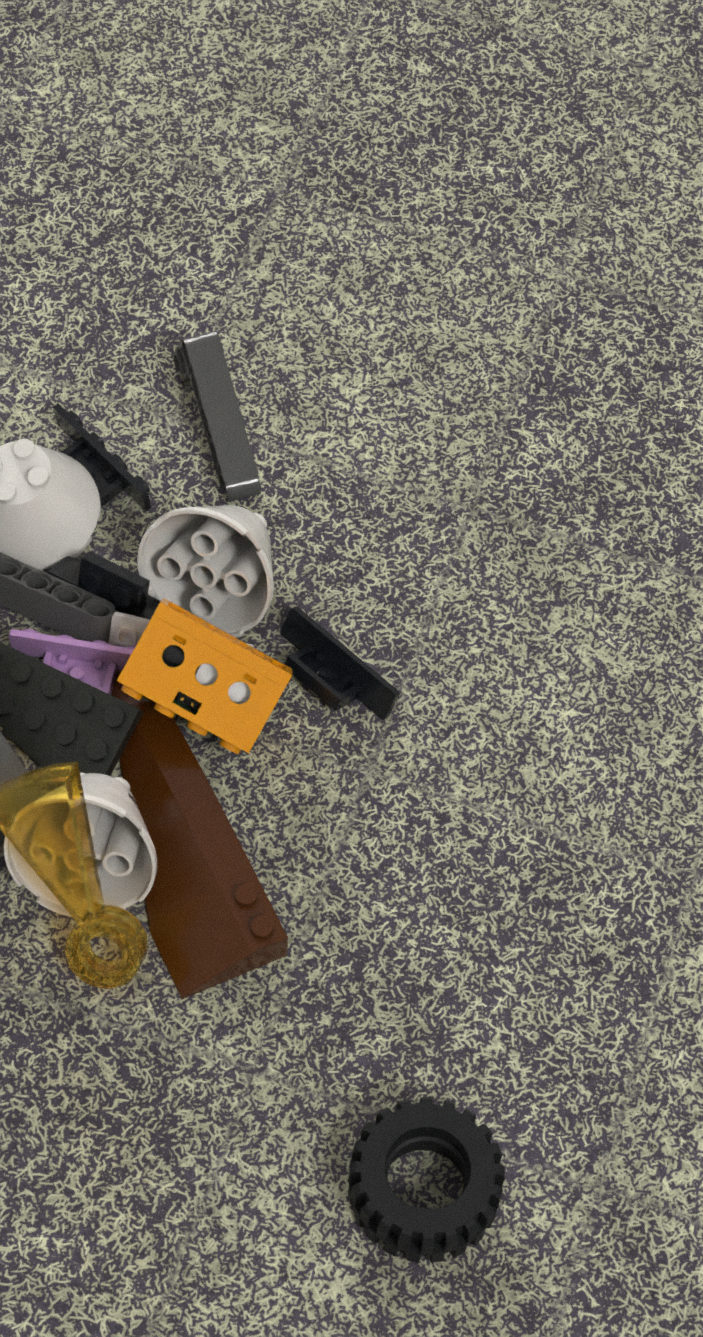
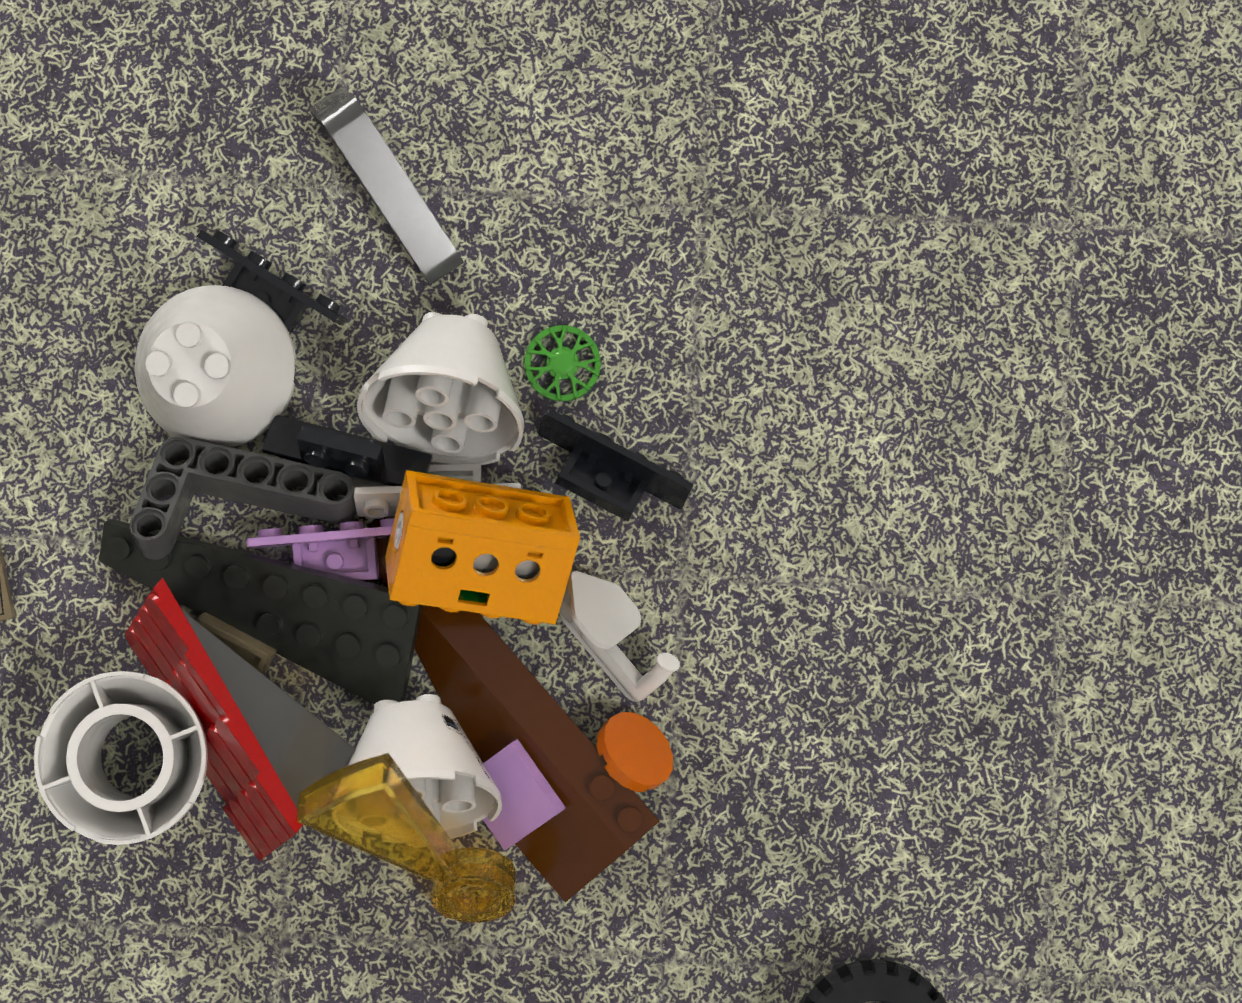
camera: 10 degrees left, 25 degrees up
(175, 891) = (525, 795): none -> lavender tile
(282, 769) = (600, 619): none -> white piece
(283, 882) = (635, 751): none -> orange tile
(318, 586) = (562, 363): none -> bright green wheel

